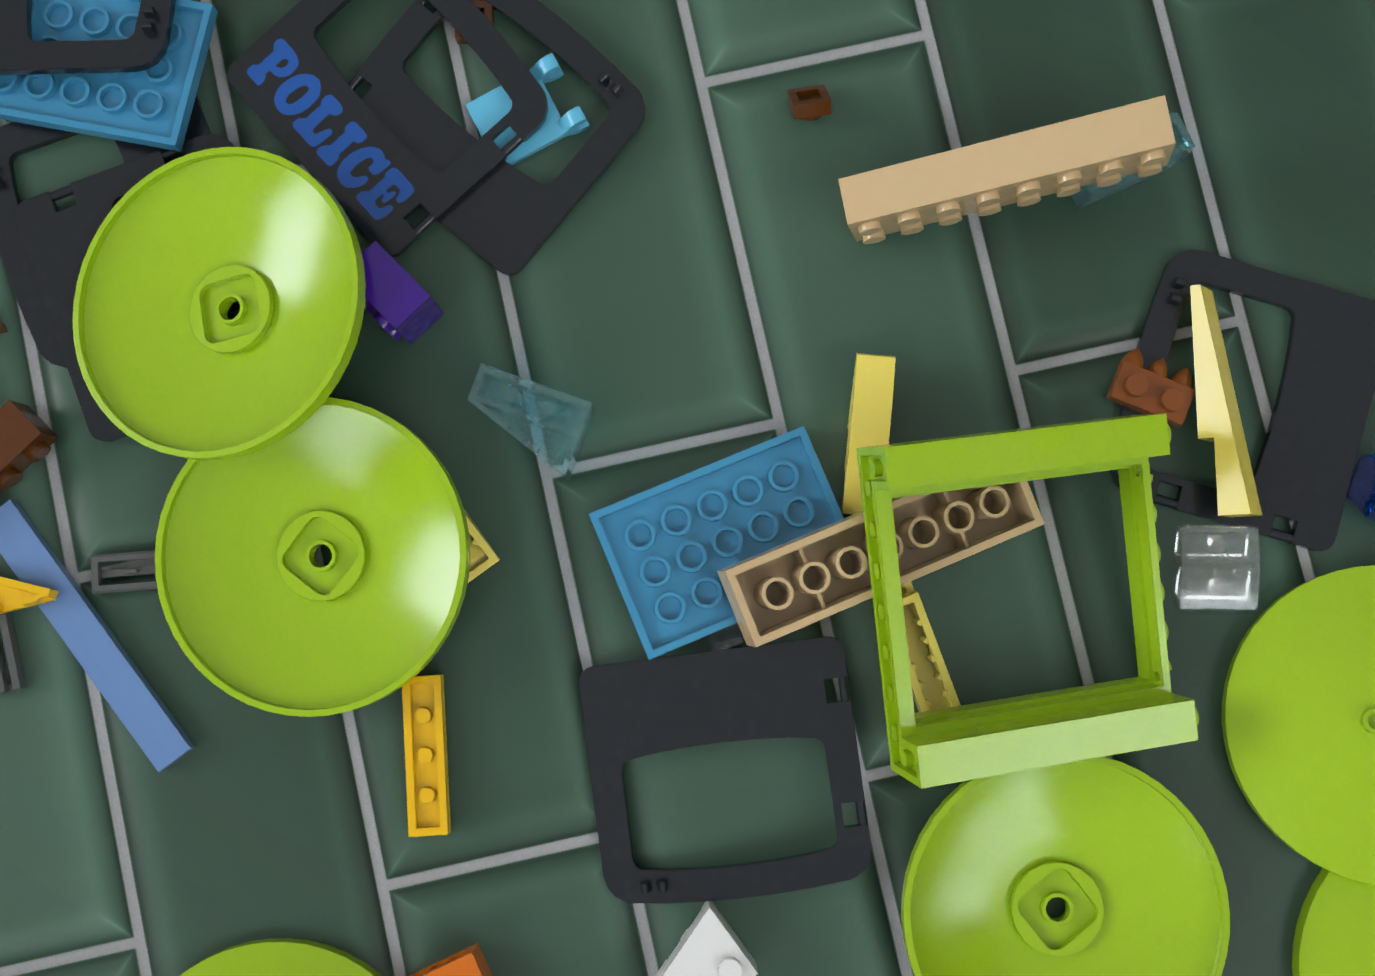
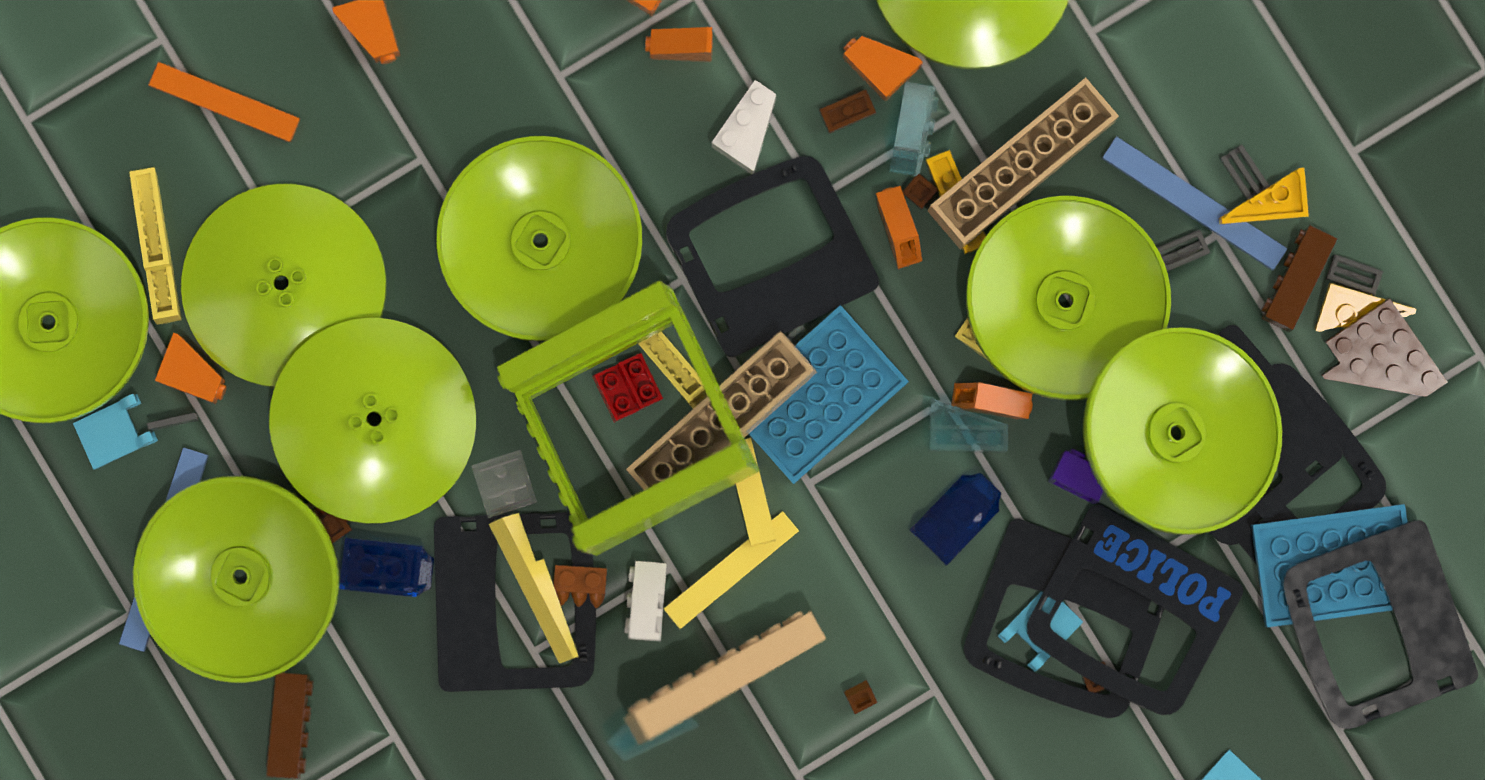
camera: 160 degrees right, 0 degrees up
(303, 780) = (1022, 163): none -> tan brick
(448, 888) = (913, 129): none -> clear light blue wedge
(474, 789) = (919, 191): none -> reddish brown plate
(480, 447) = (992, 400): none -> orange slope
(521, 747) = (899, 226): none -> orange slope
(537, 947) = (847, 111): none -> reddish brown plate
(587, 304) = (958, 516): none -> clear blue slope
(942, 330) = (727, 573): none -> light yellow slope
(994, 646) = (627, 387): none -> red slope
(1070, 326) = (646, 601): none -> white wedge

